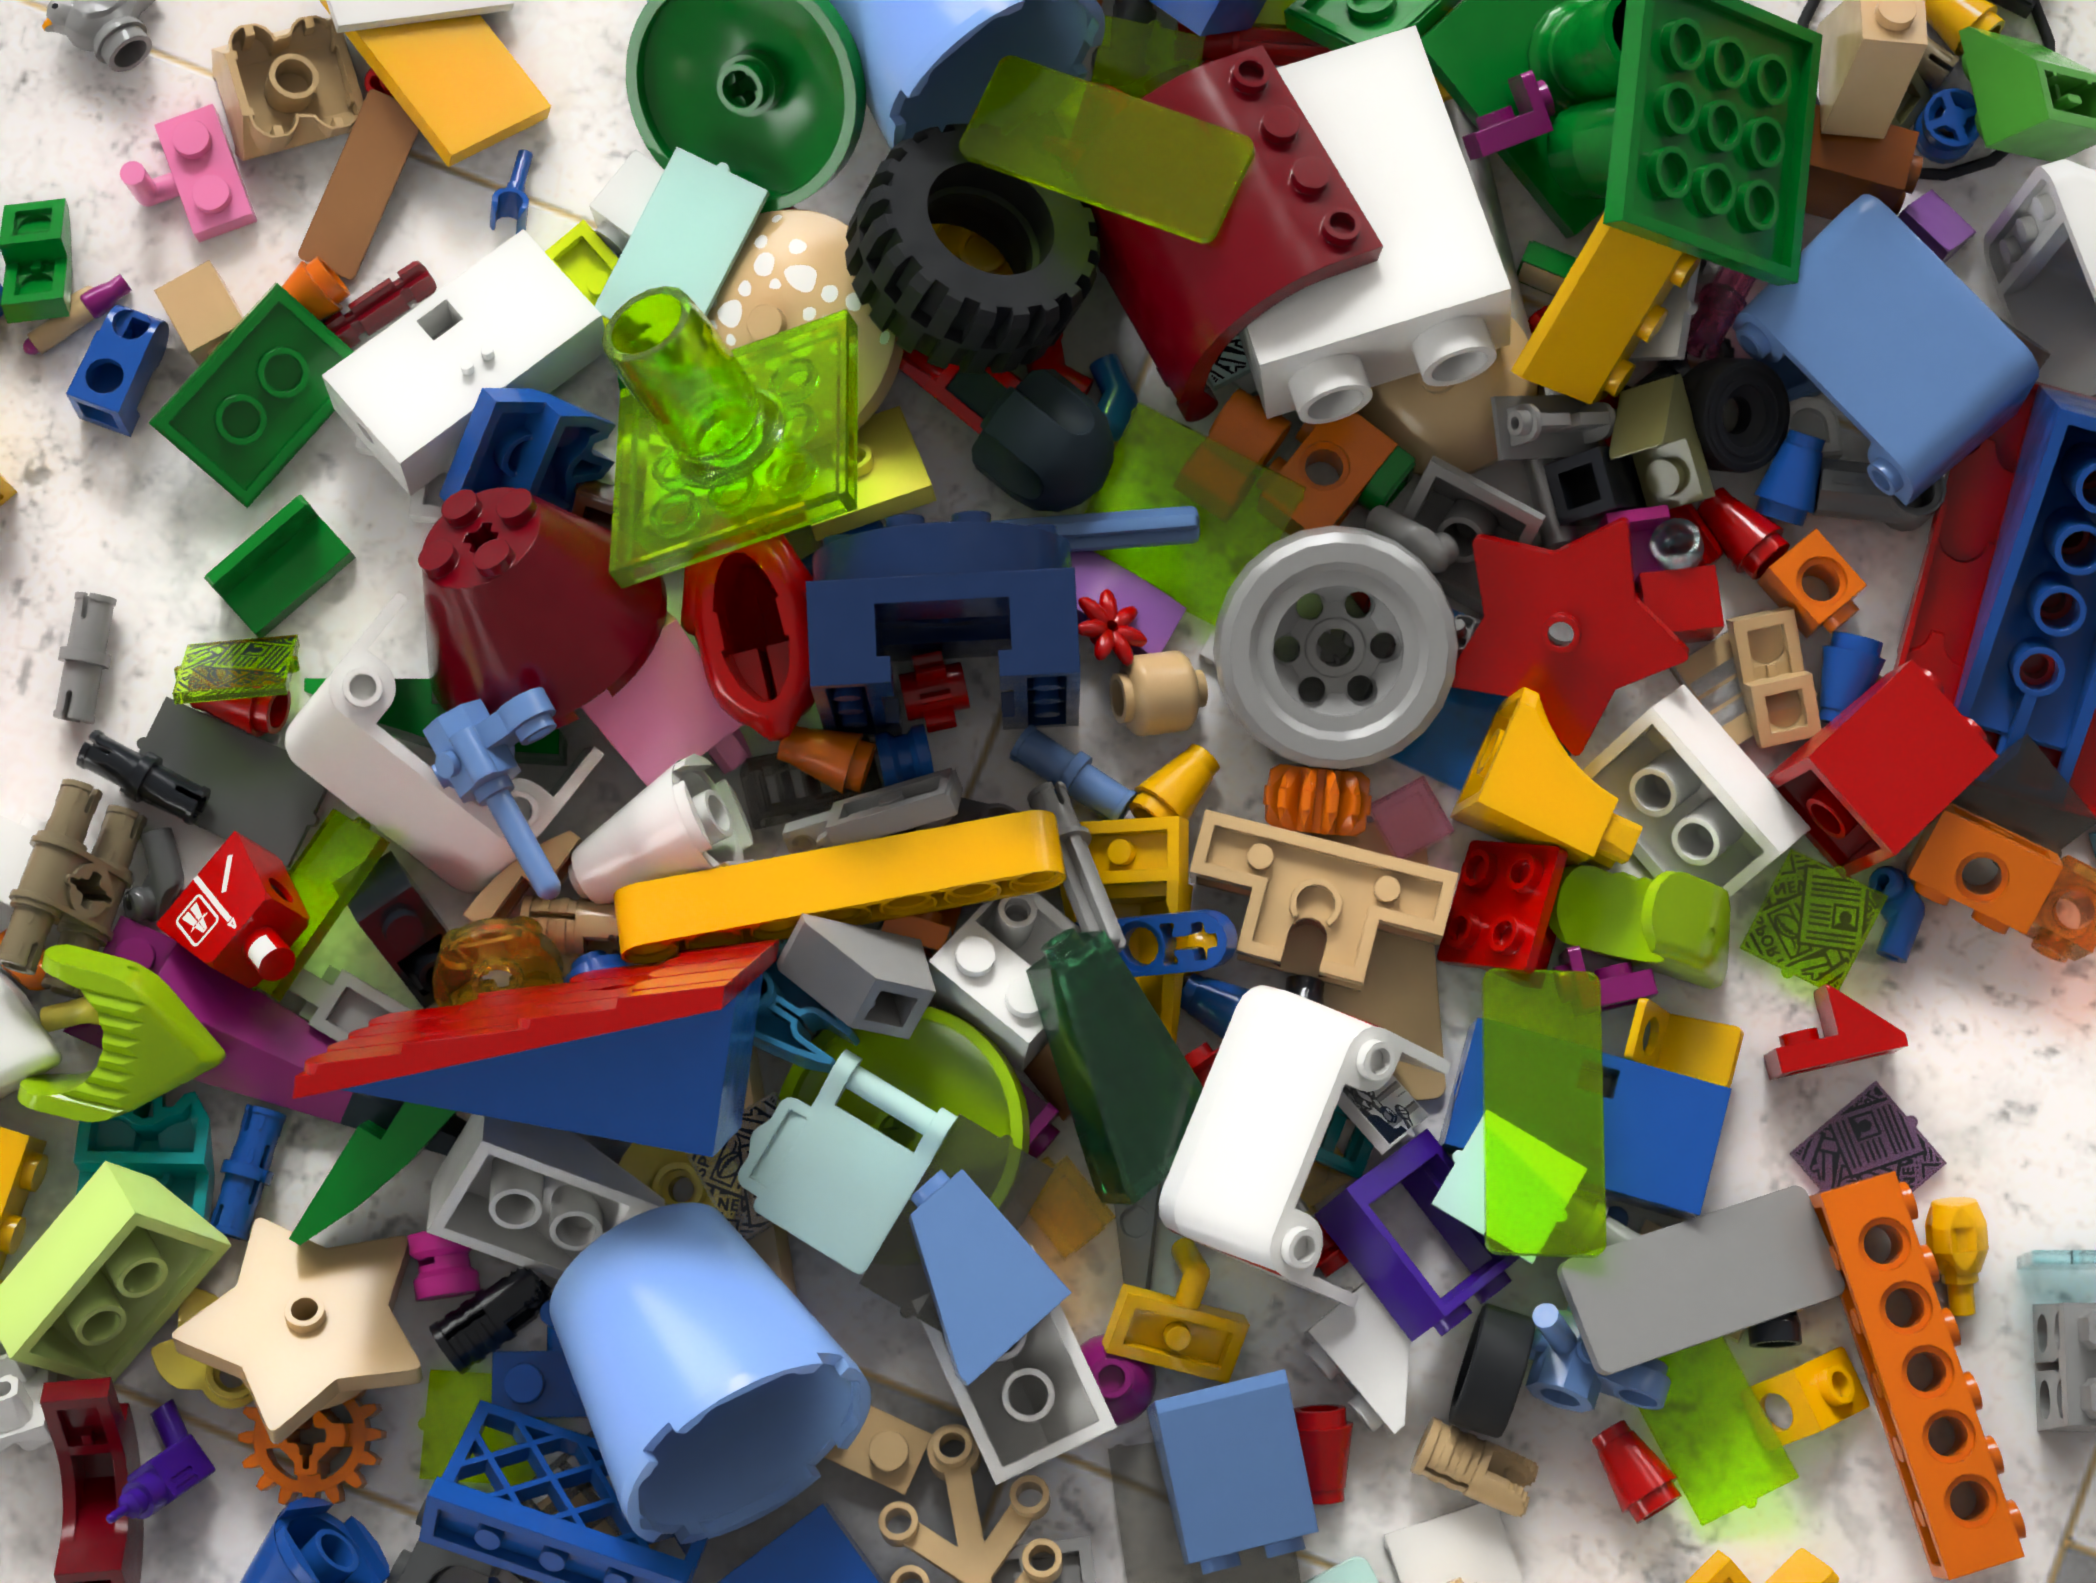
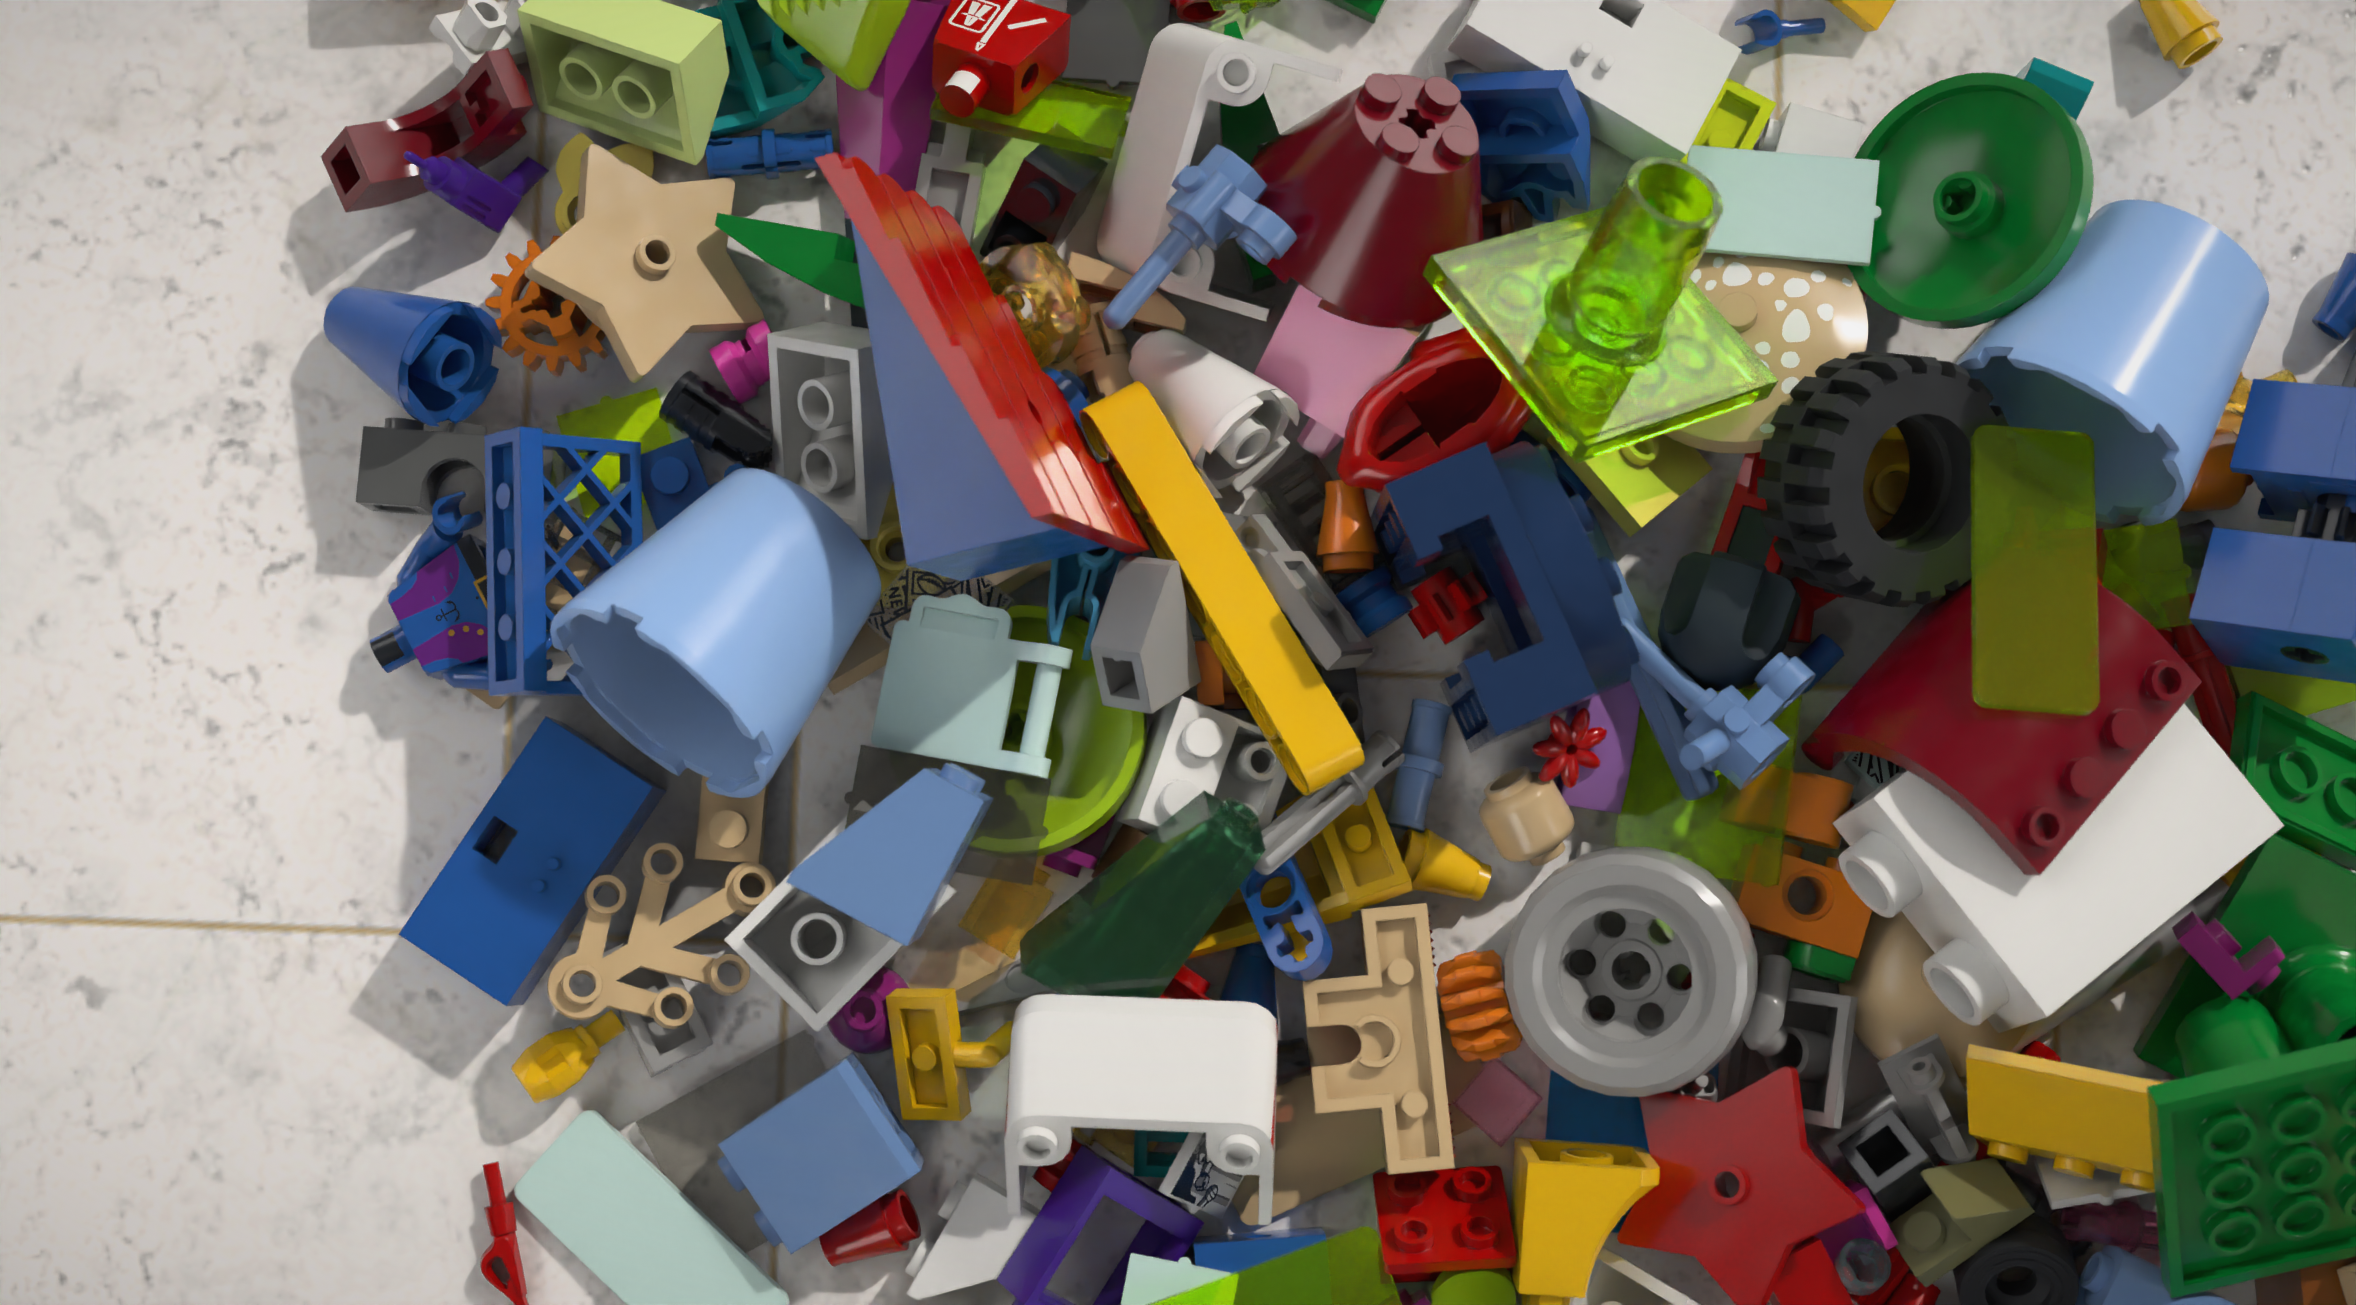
camera: 70 degrees right, 5 degrees up
(1144, 477) = (1725, 726): none -> medium blue piece
(1544, 267) = (2093, 1041): green tile -> none

